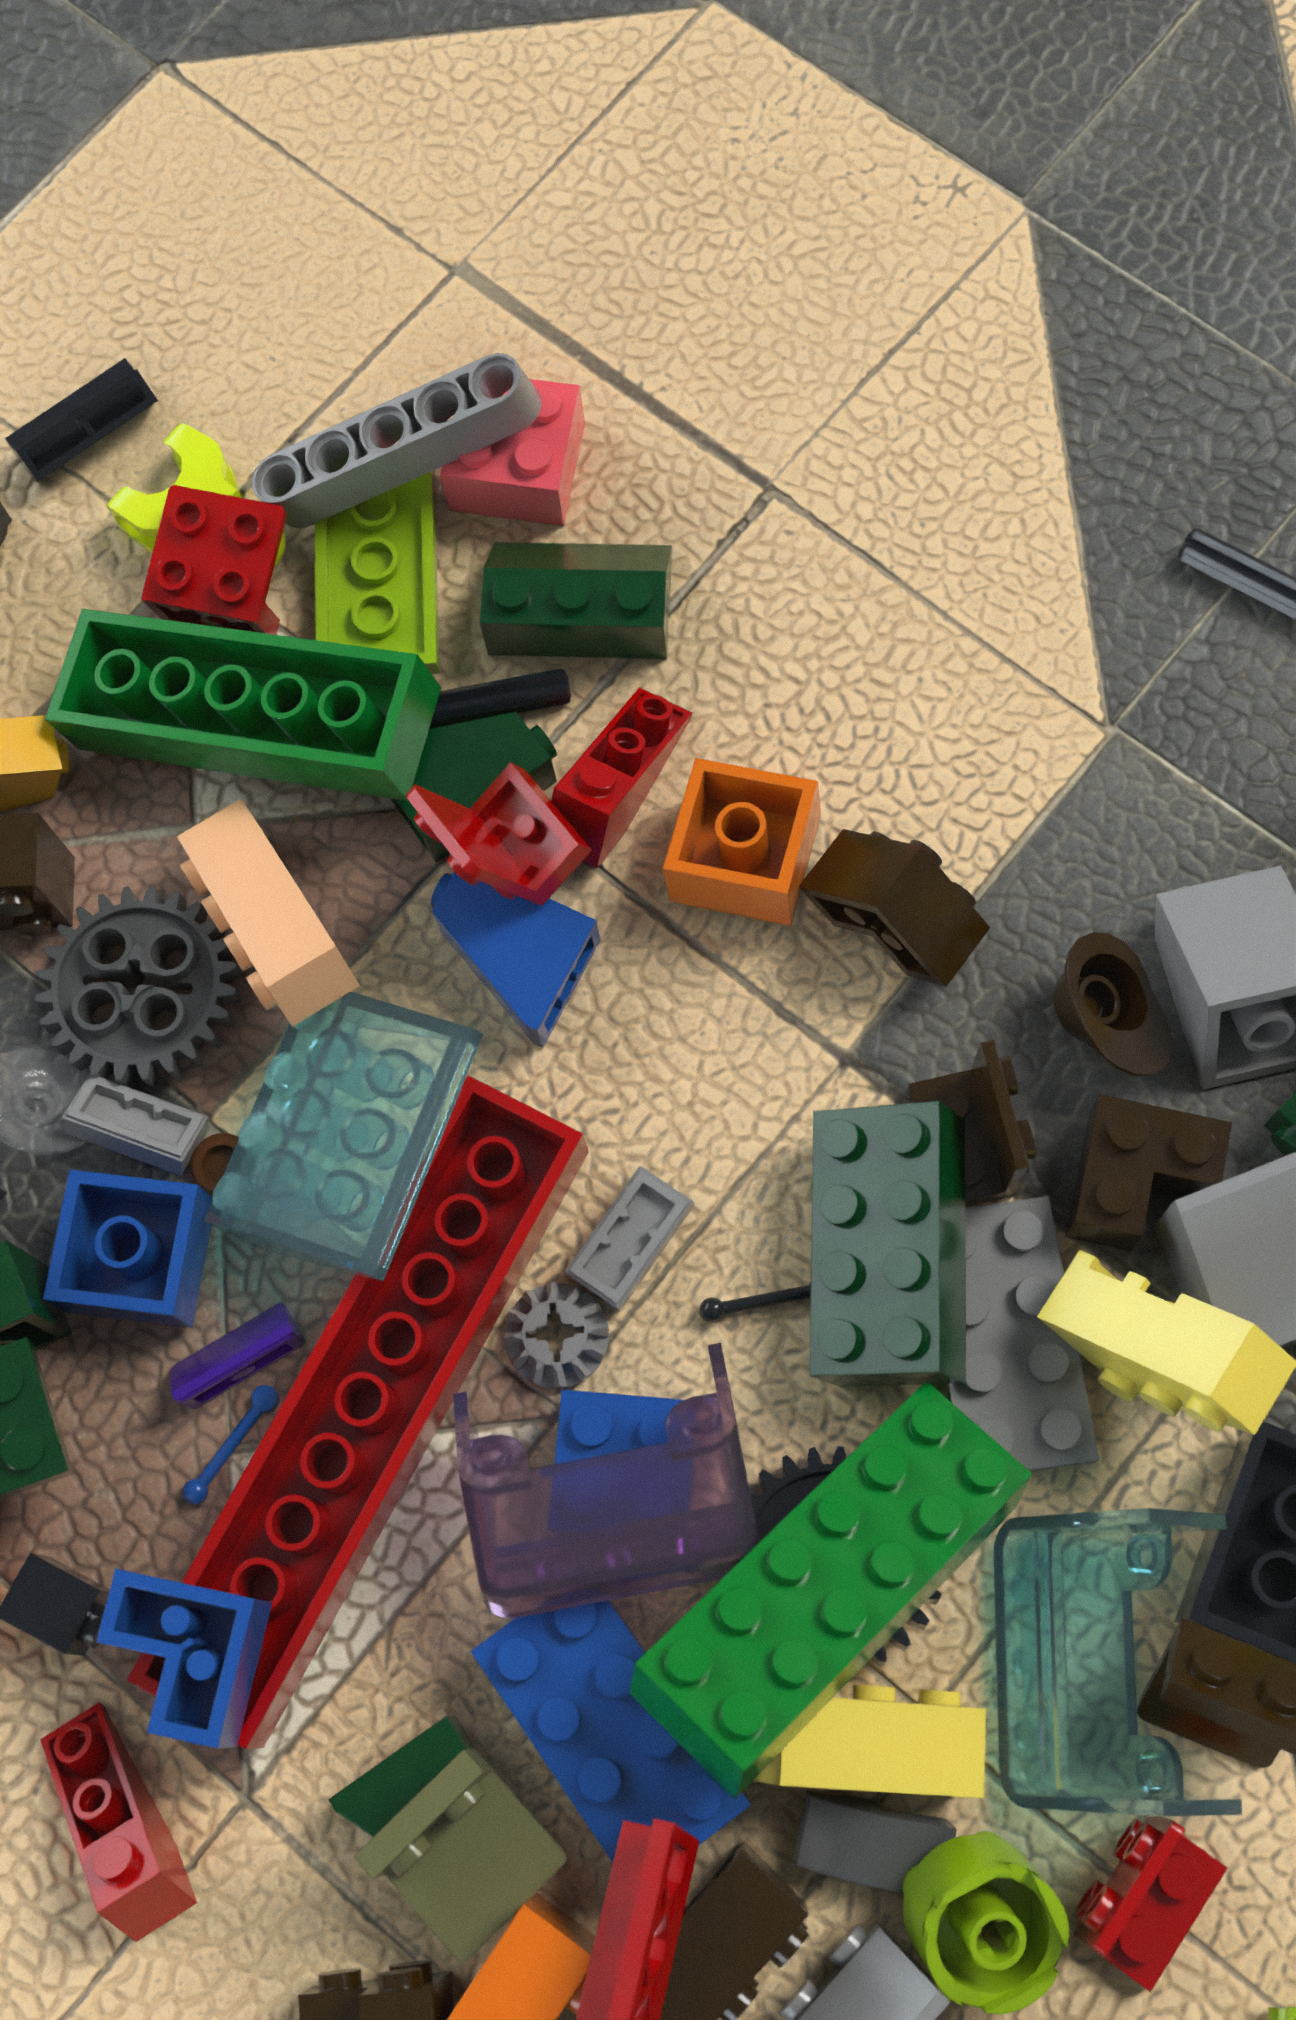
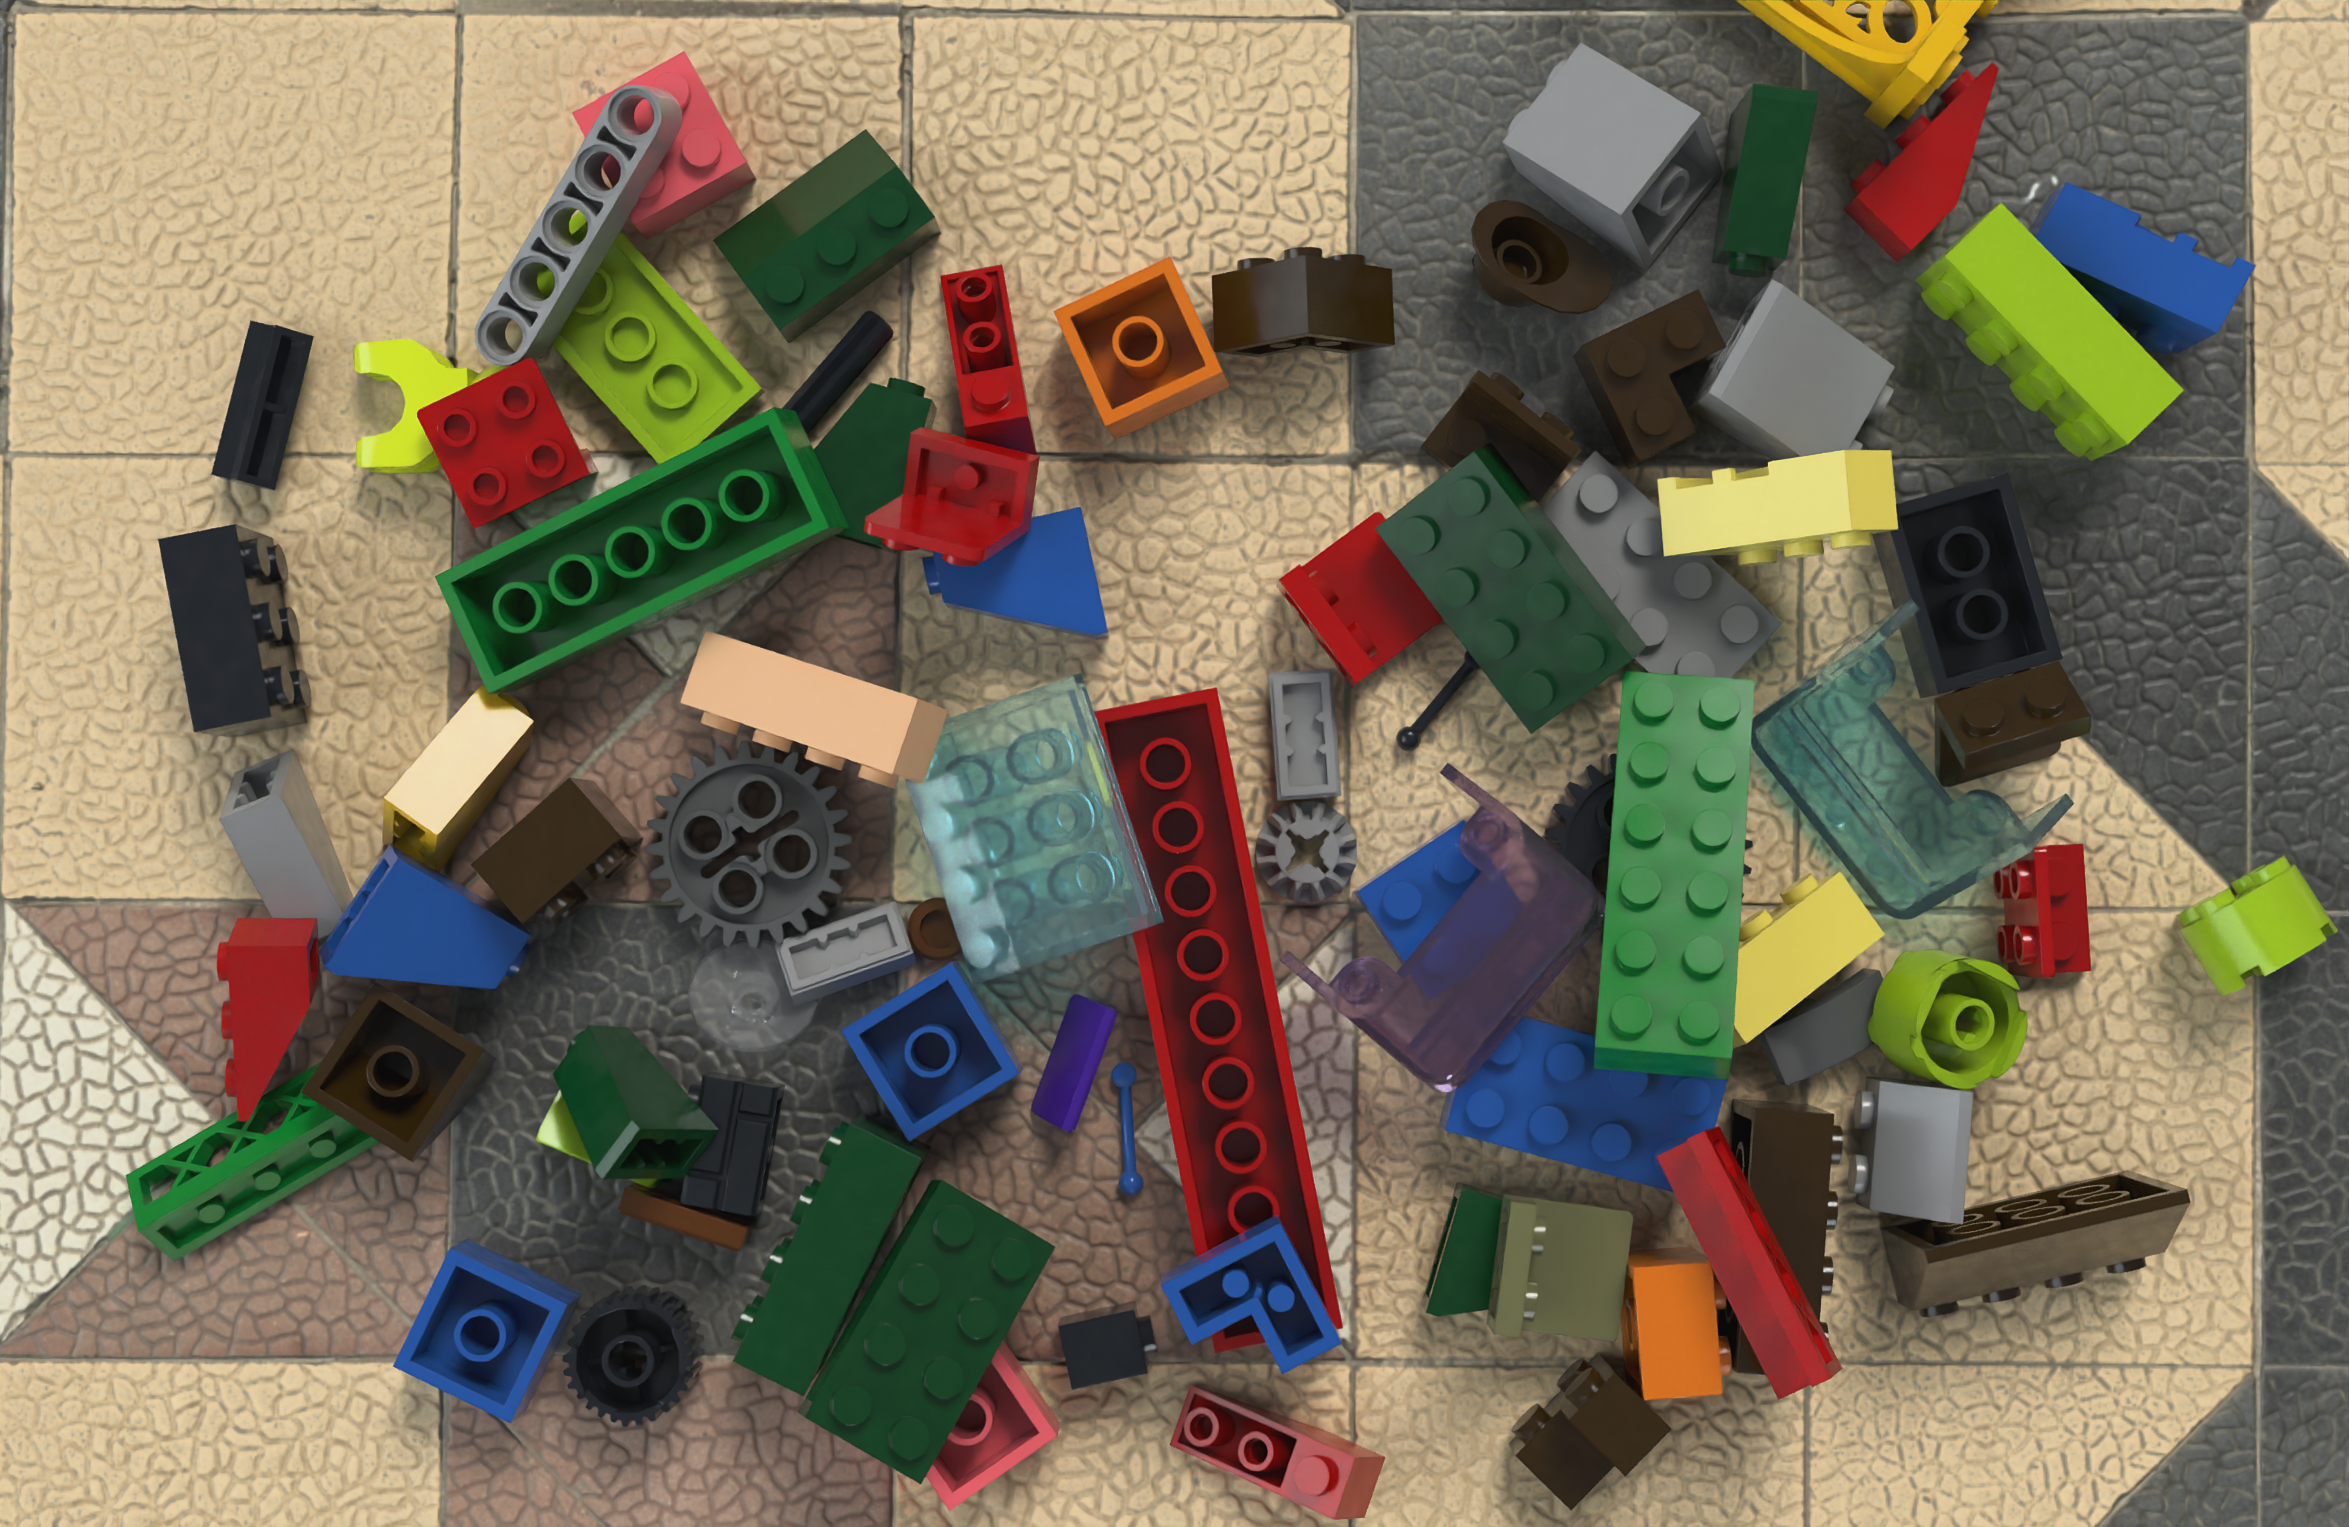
camera: 45 degrees left, 15 degrees up
(754, 1168) = (1359, 601): none -> red bracket

